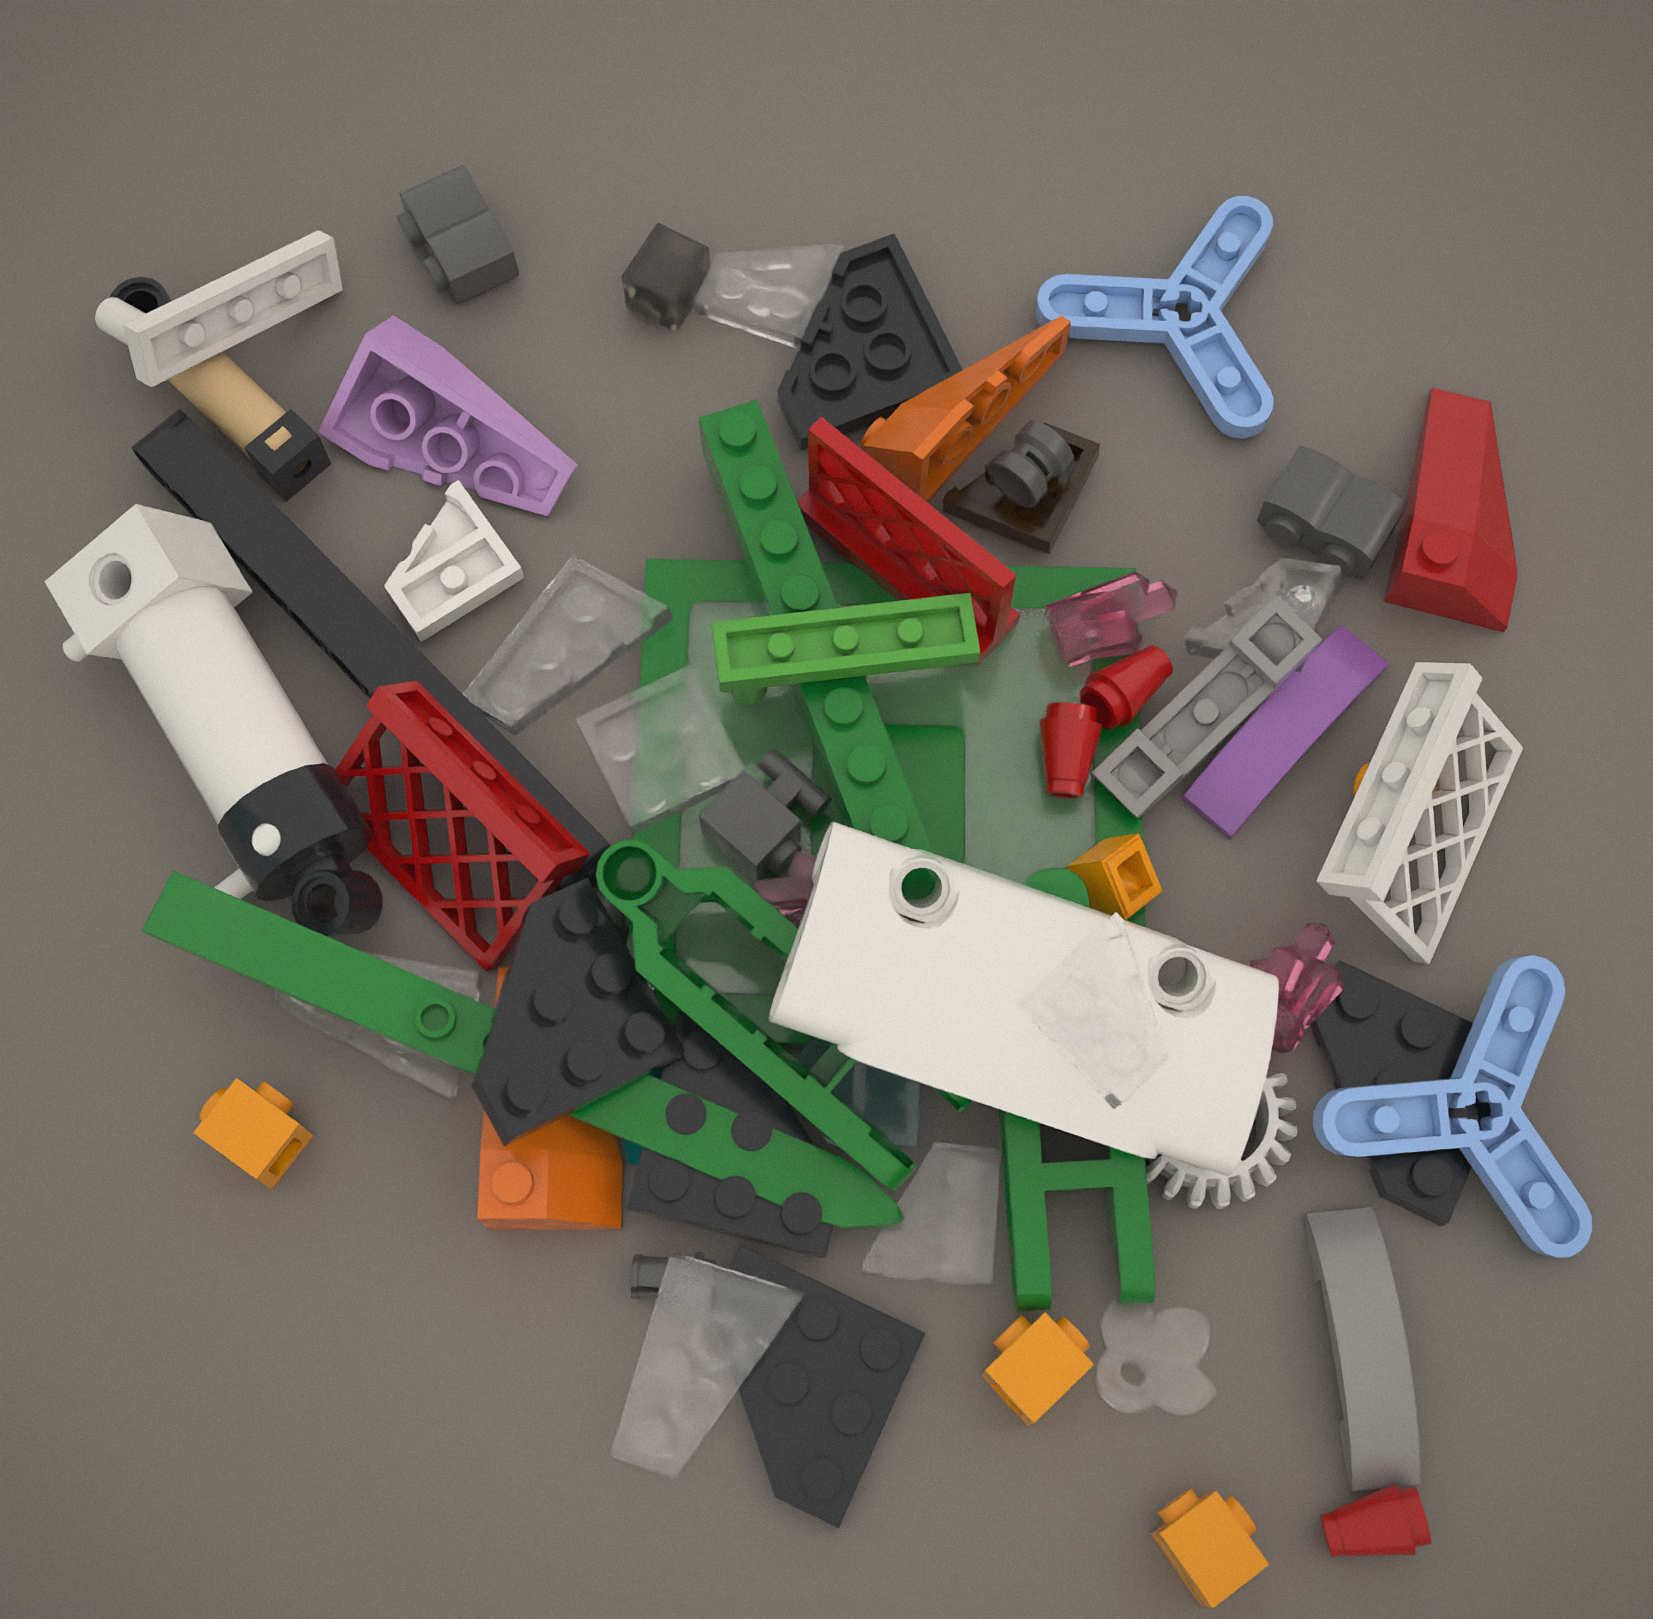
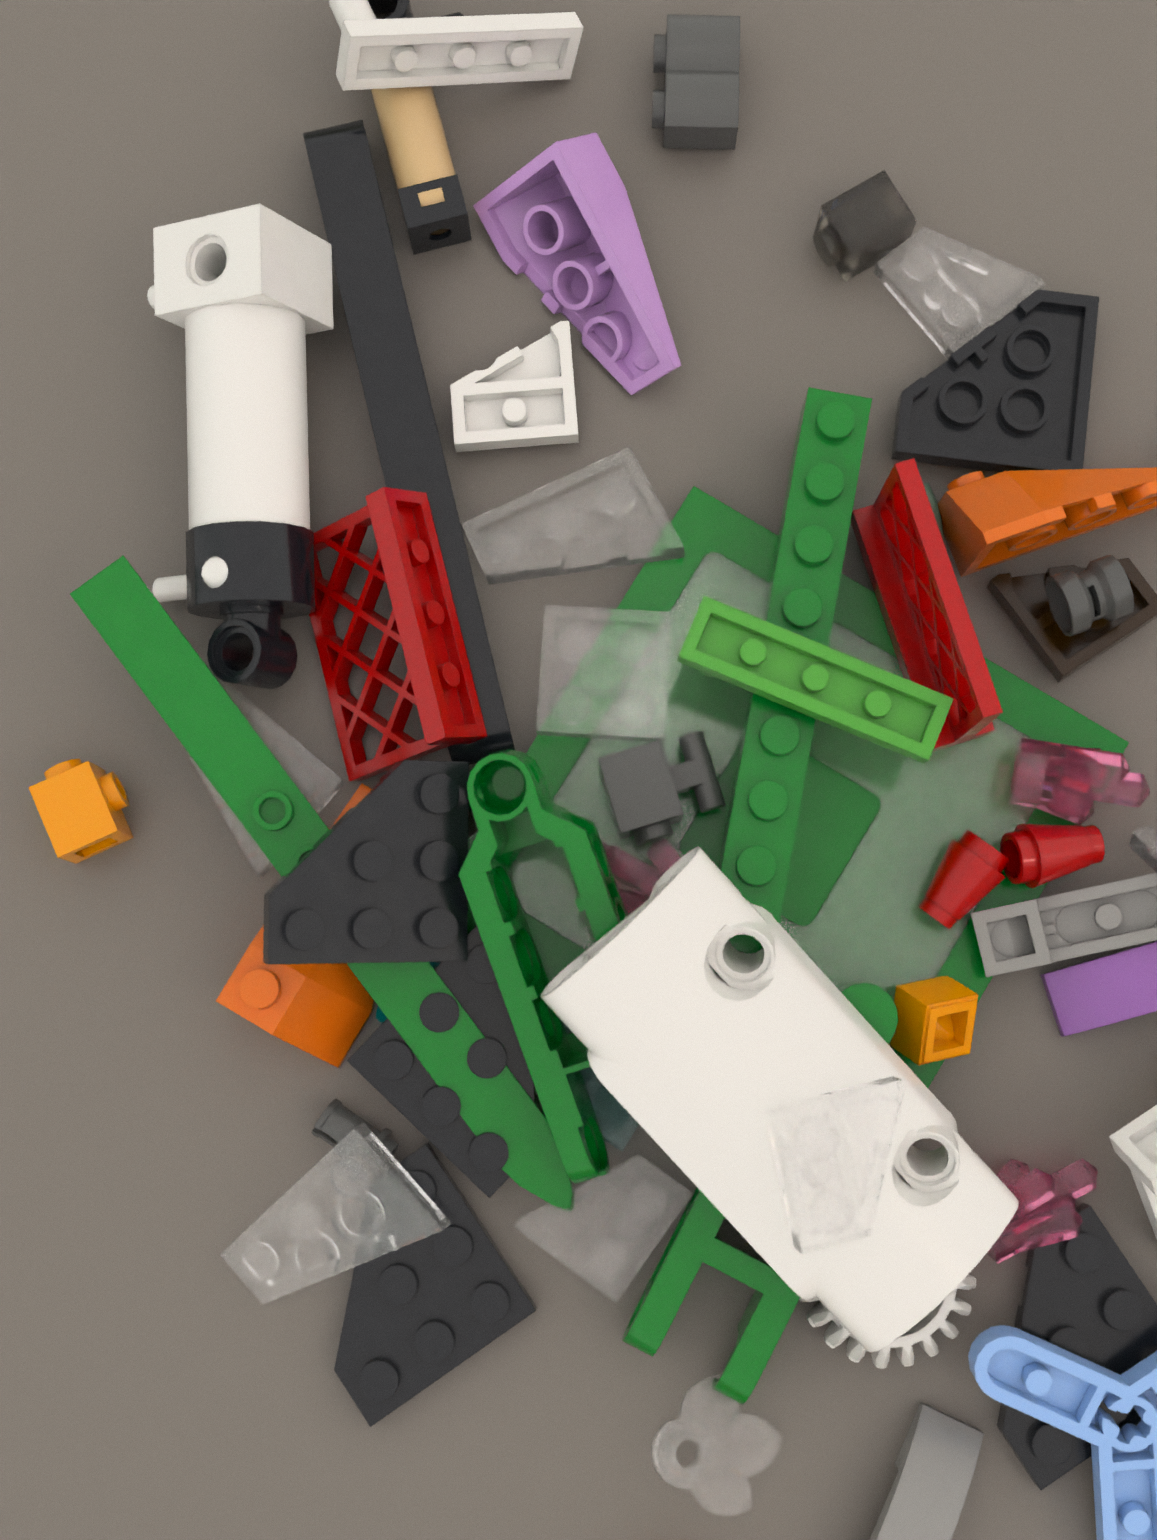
camera: 35 degrees right, 10 degrees up
(1037, 1364) = (612, 1397): light orange brick -> none

